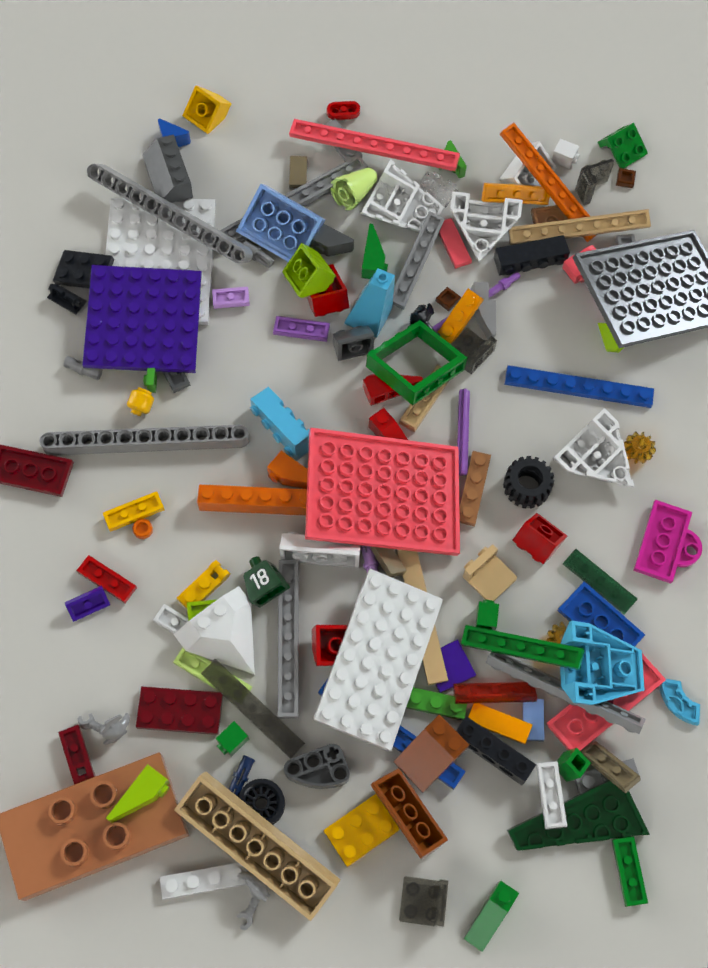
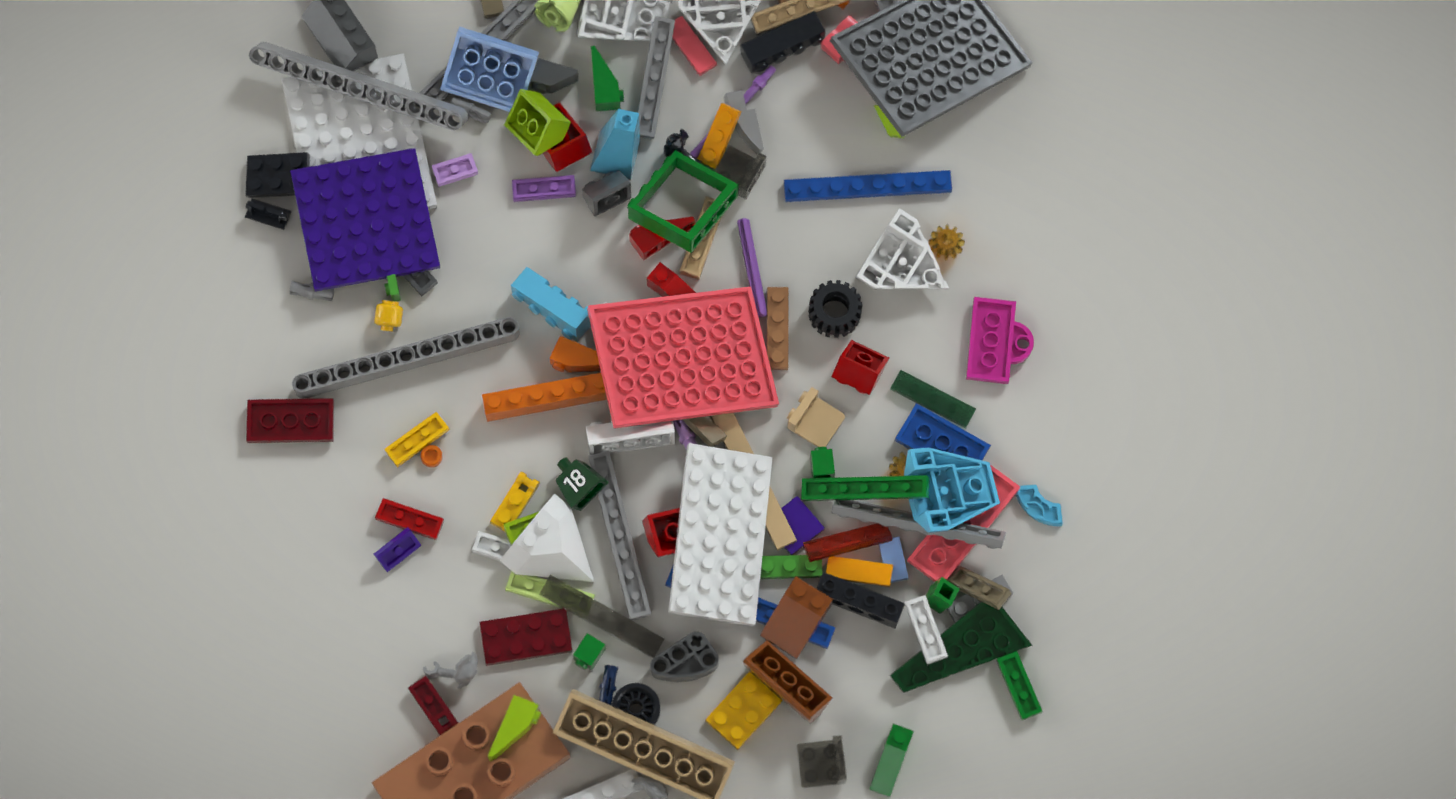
camera: 15 degrees left, 5 degrees up
(448, 298) = (700, 115): reddish brown tile -> none

